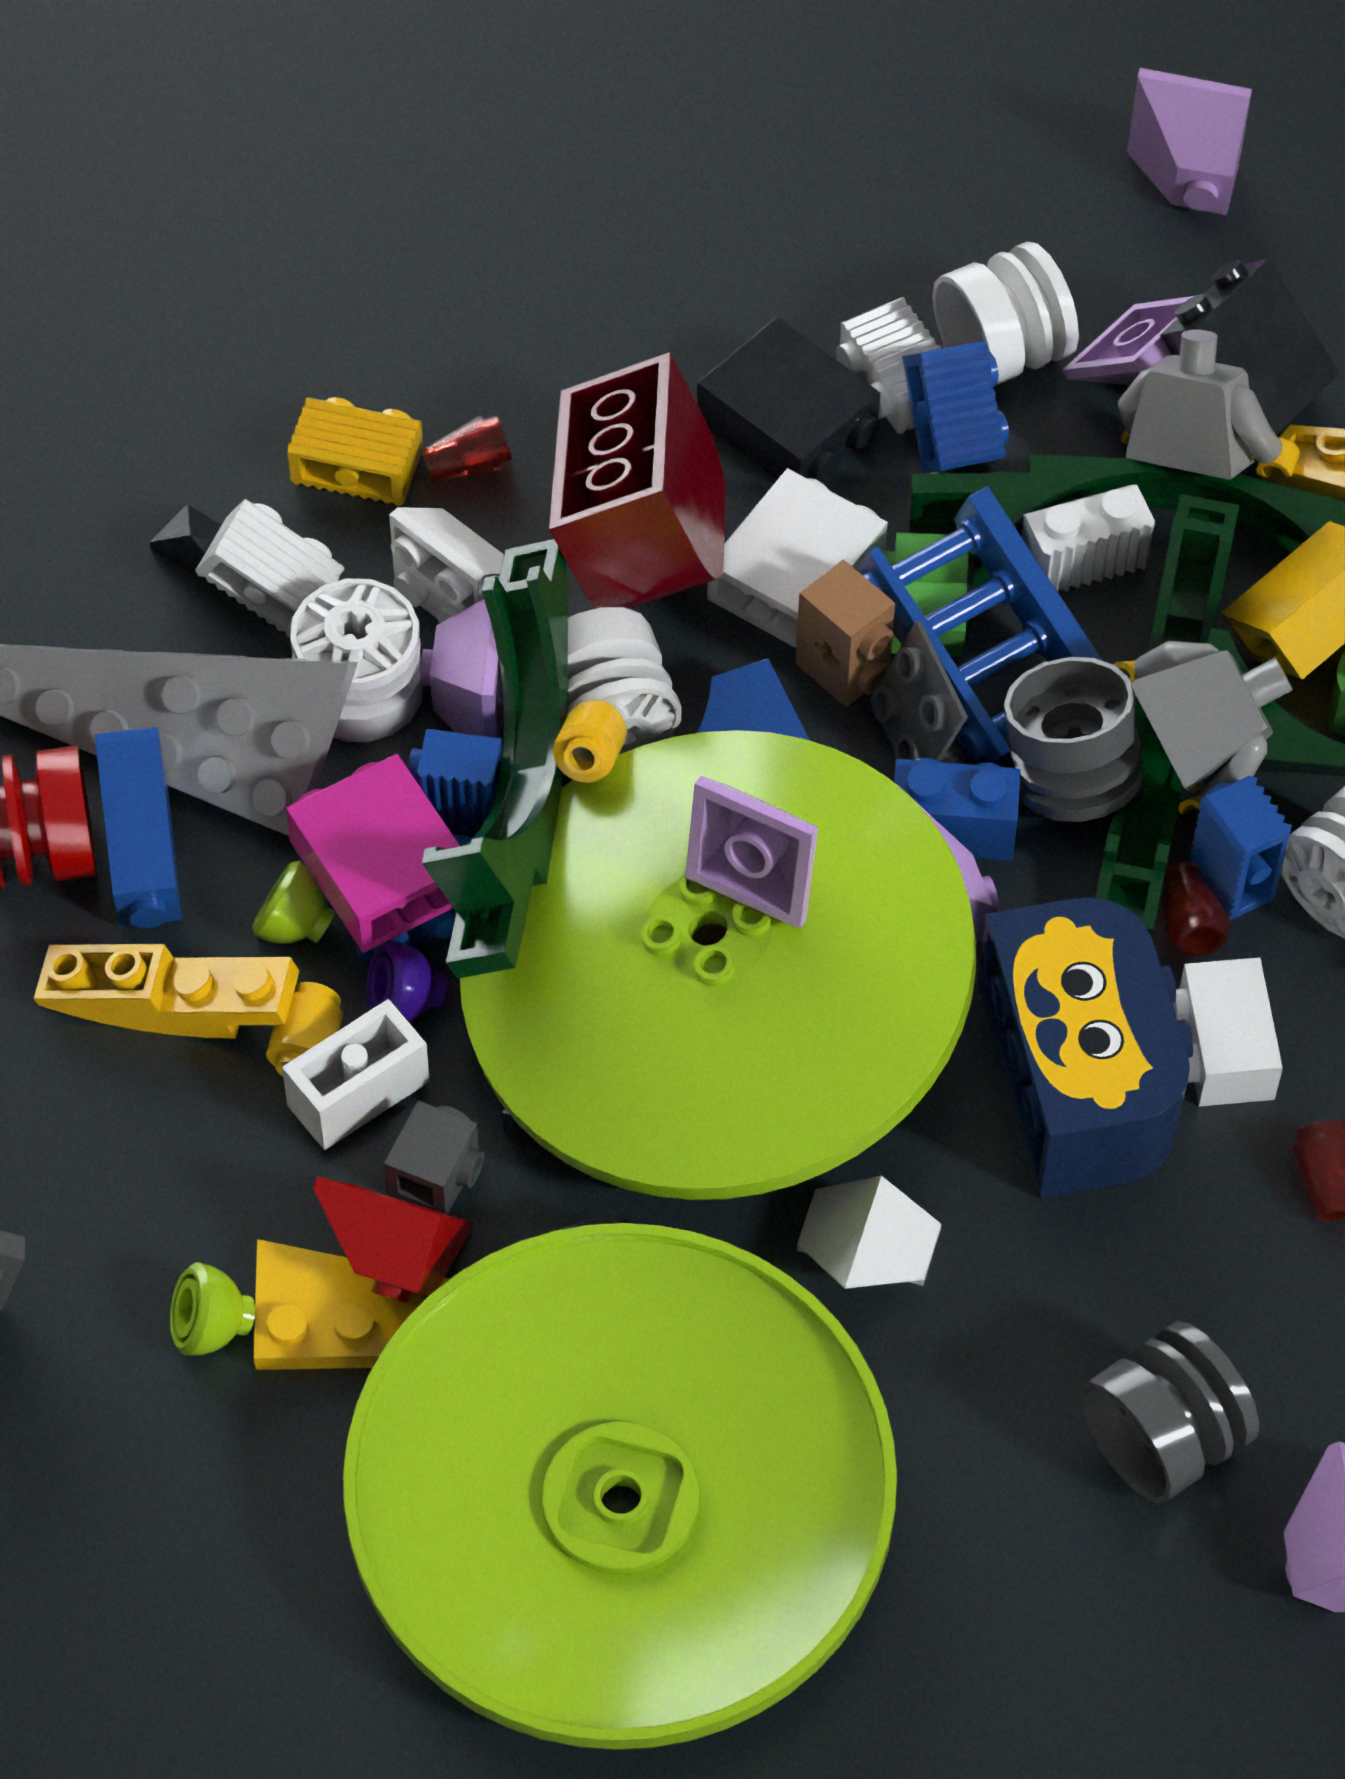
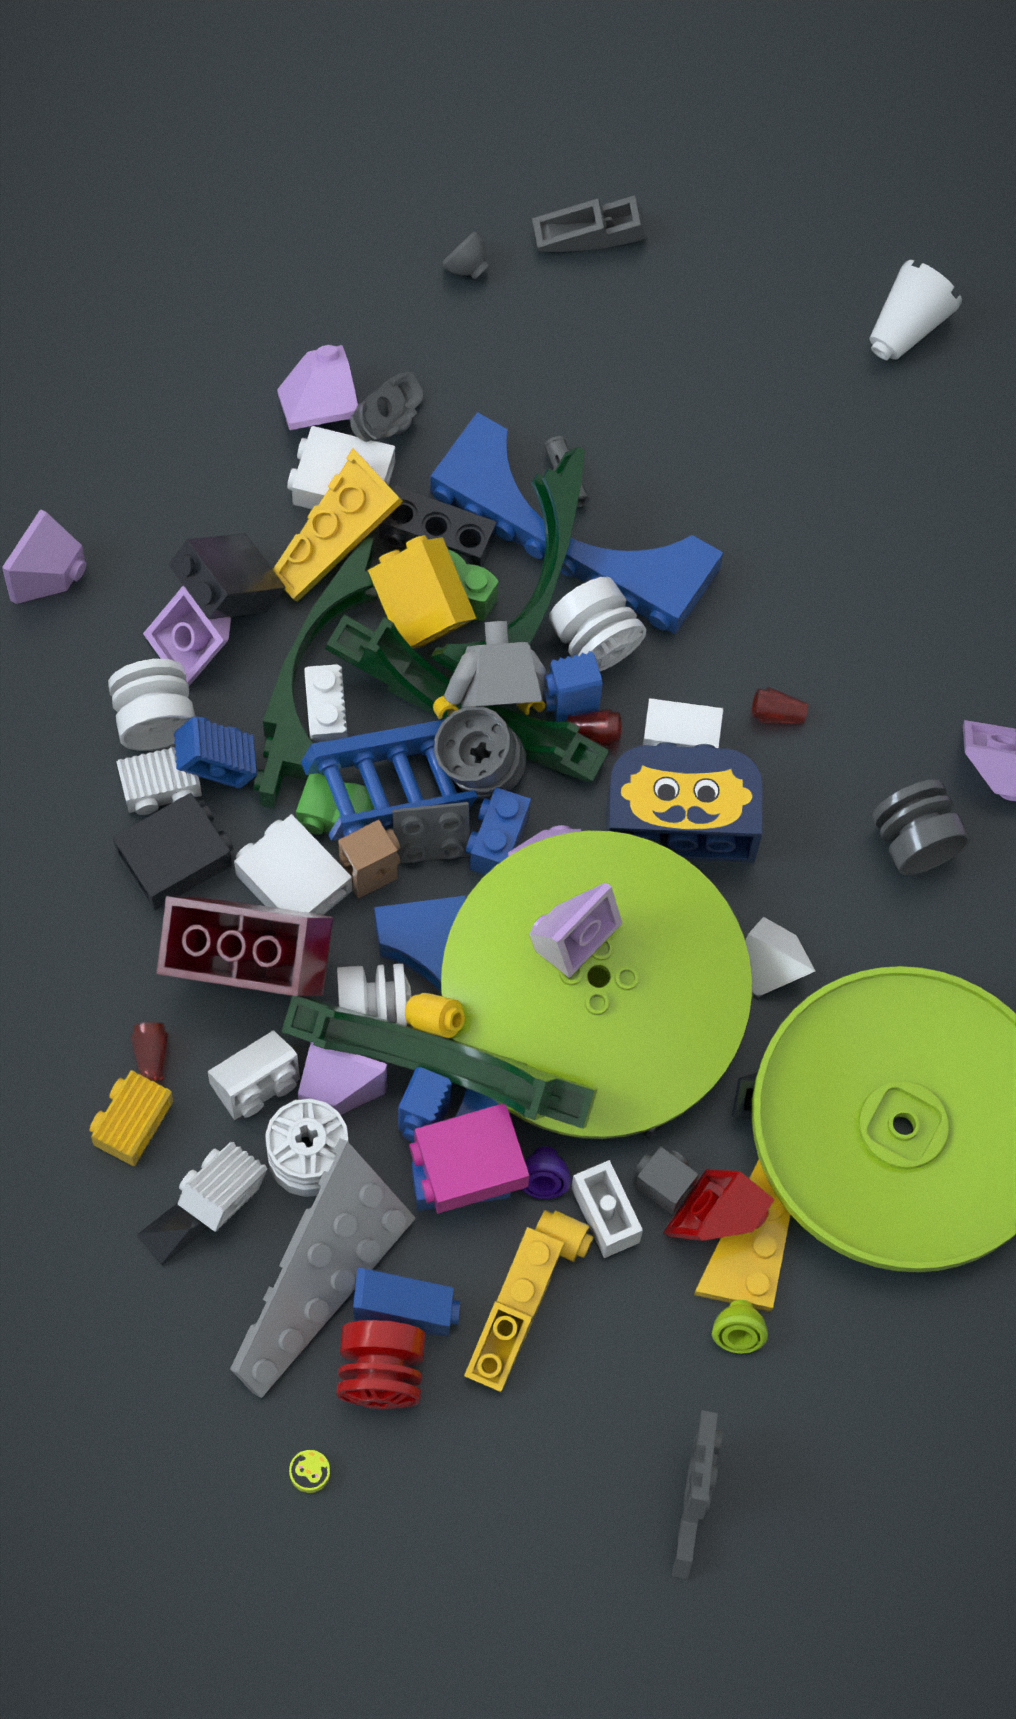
camera: 80 degrees left, 10 degrees up
(293, 909) = (471, 1227): lime brick -> none
(1200, 416) = (275, 619): light grey torso -> none

